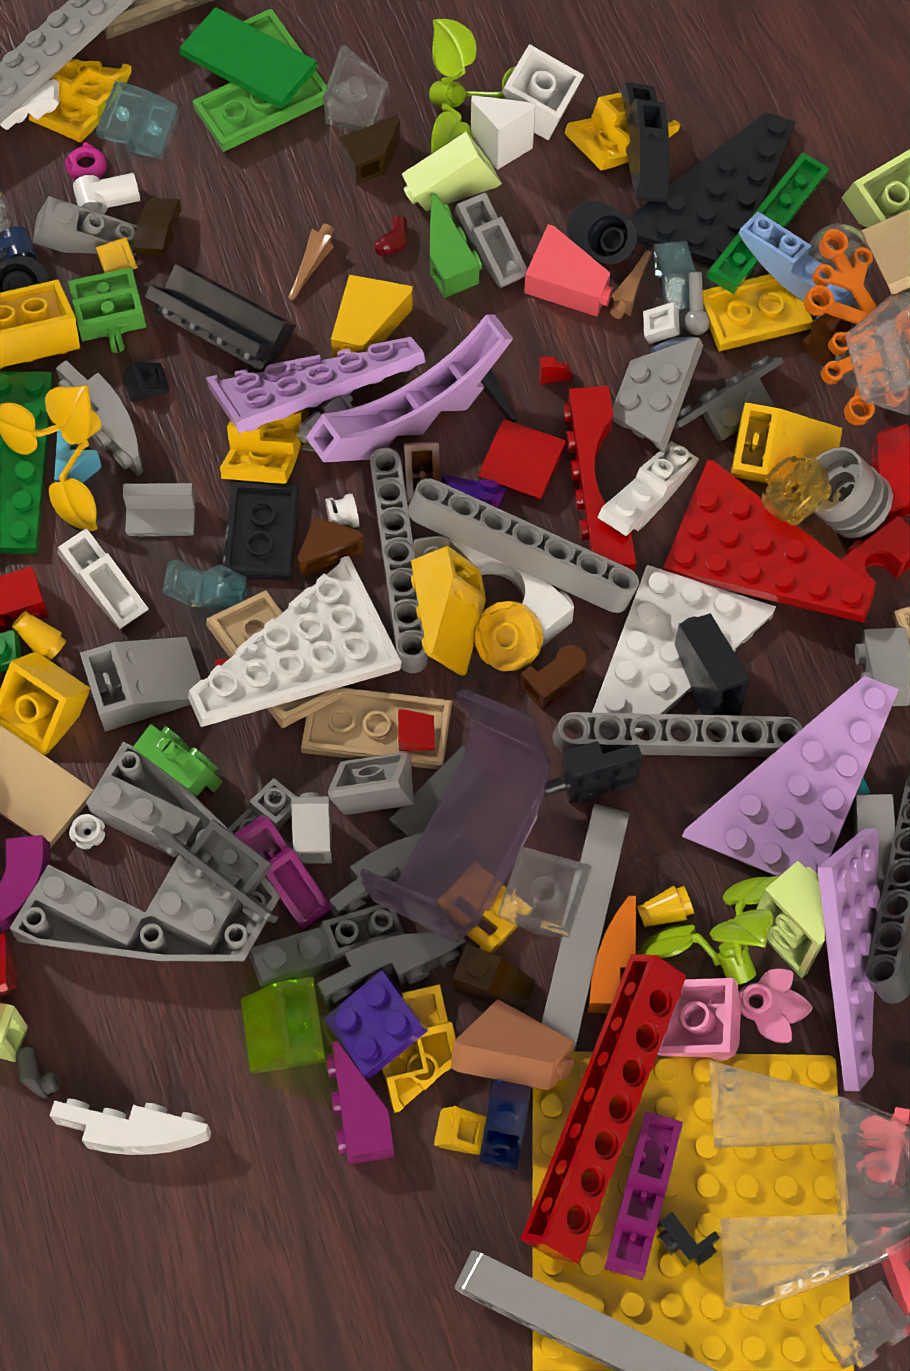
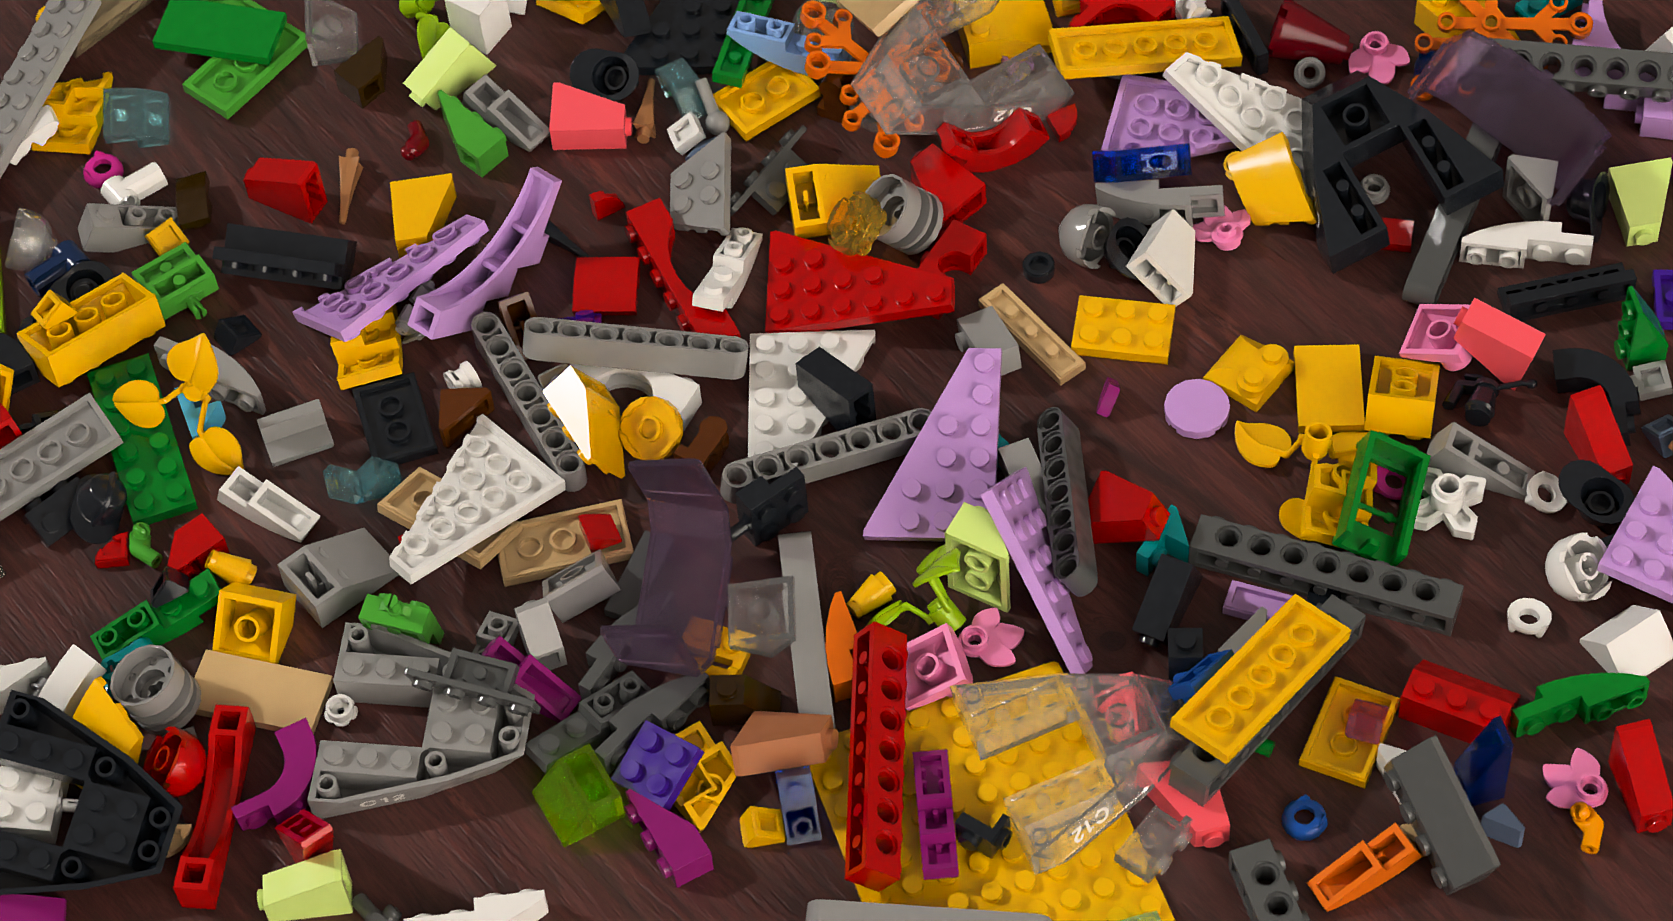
camera: 15 degrees left, 10 degrees down
(250, 244) = (287, 186): none -> red slope

